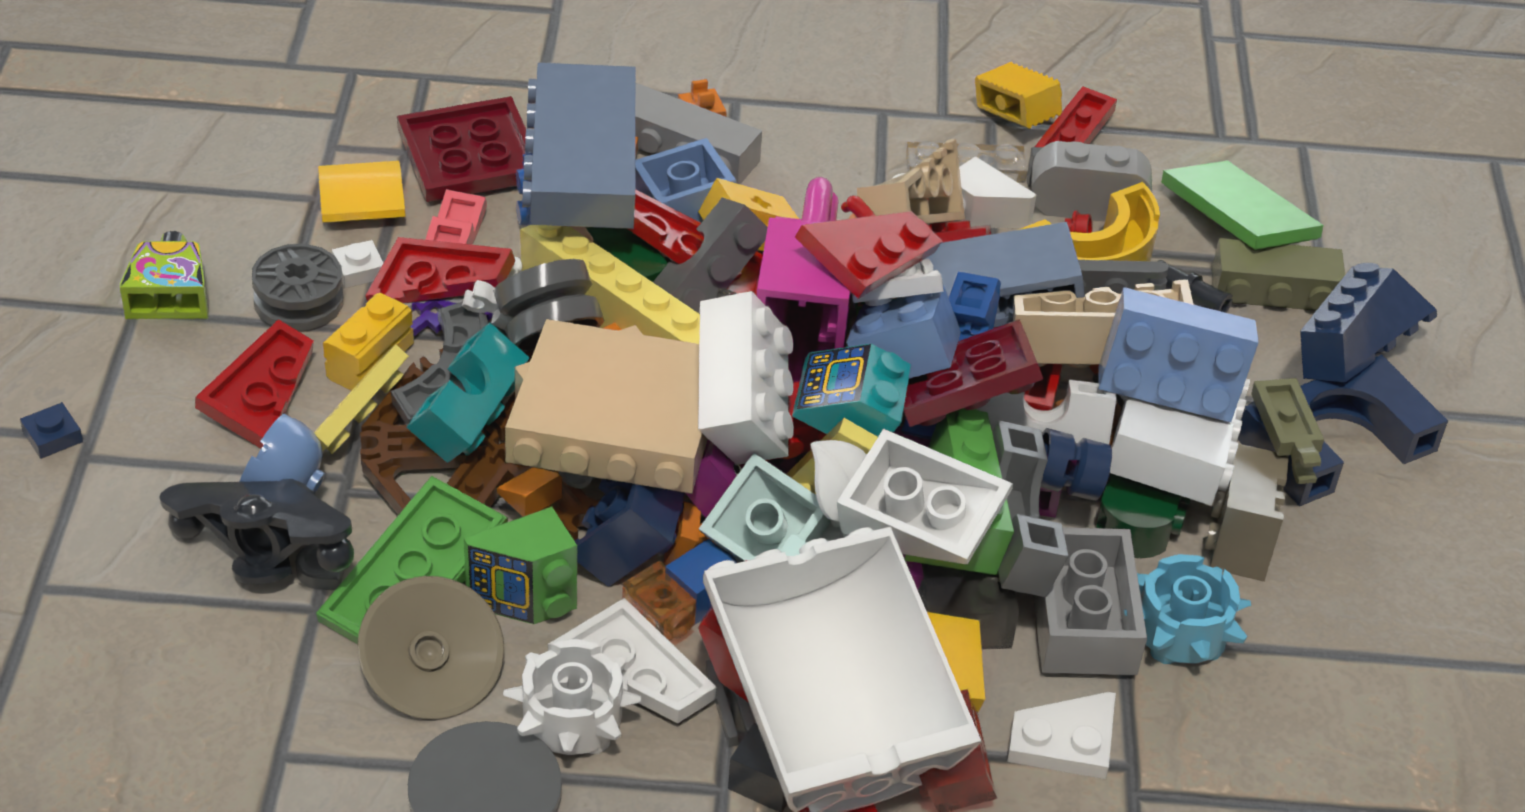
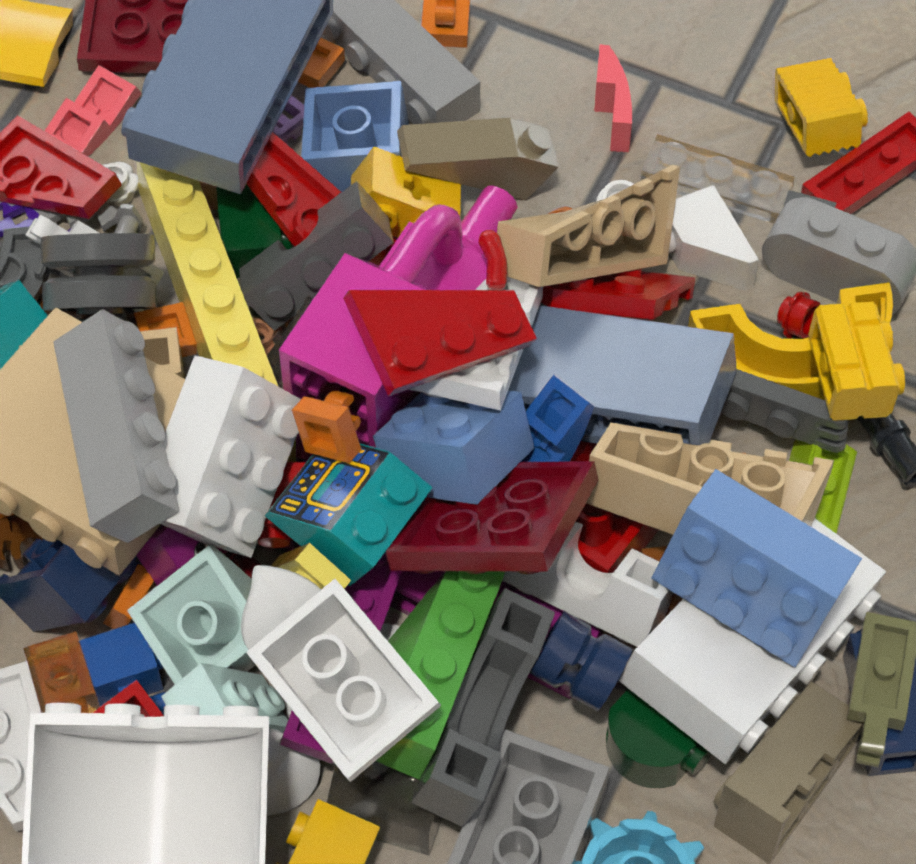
camera: 25 degrees right, 15 degrees up
(658, 369) = (115, 427): none -> light grey brick
(790, 168) = (481, 153): none -> dark tan slope
(816, 338) = (328, 426): none -> orange tile
(863, 123) = (614, 97): none -> coral slope
(1155, 226) = (855, 361): none -> yellow brick

